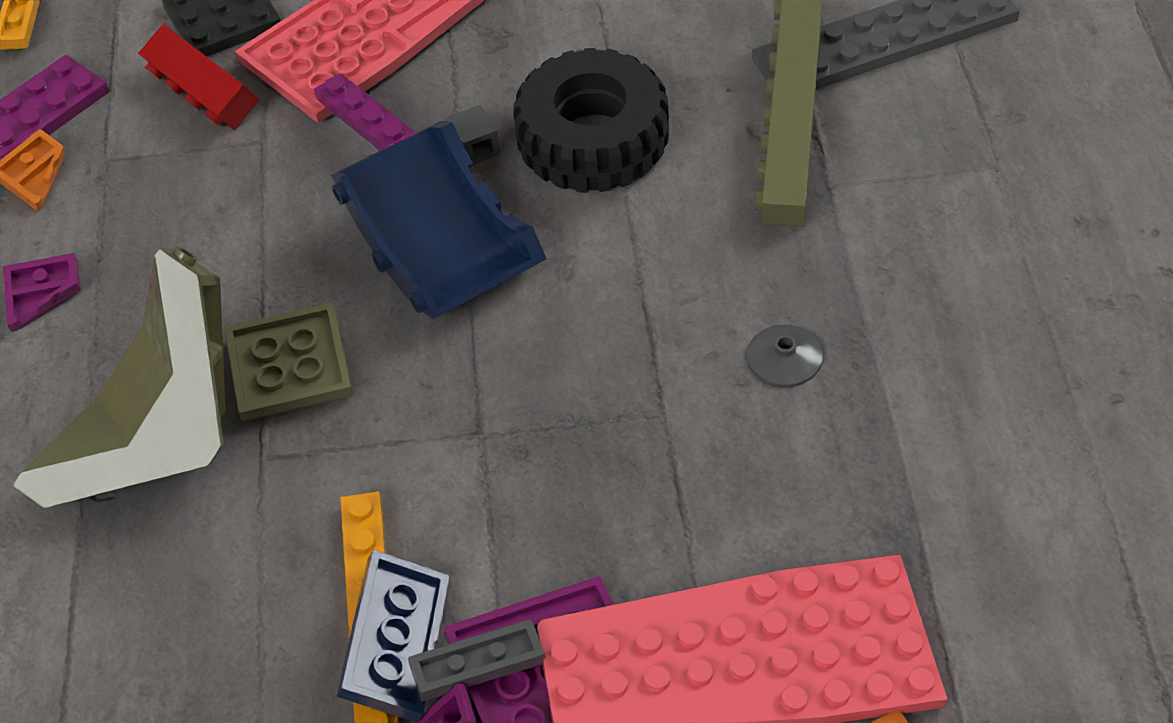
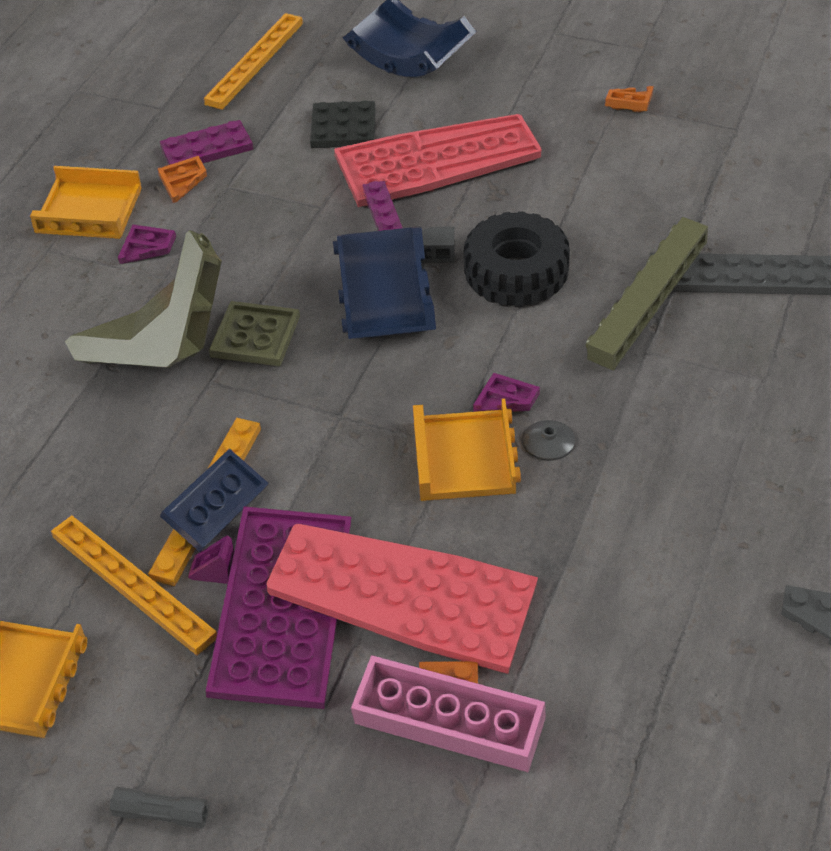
camera: 25 degrees right, 5 degrees down
(197, 76) = (303, 157): red brick -> none
(476, 659) = (247, 528): dark grey plate -> none
(692, 419) = (465, 454): none -> light orange panel
(694, 315) = (517, 394): none -> magenta wing

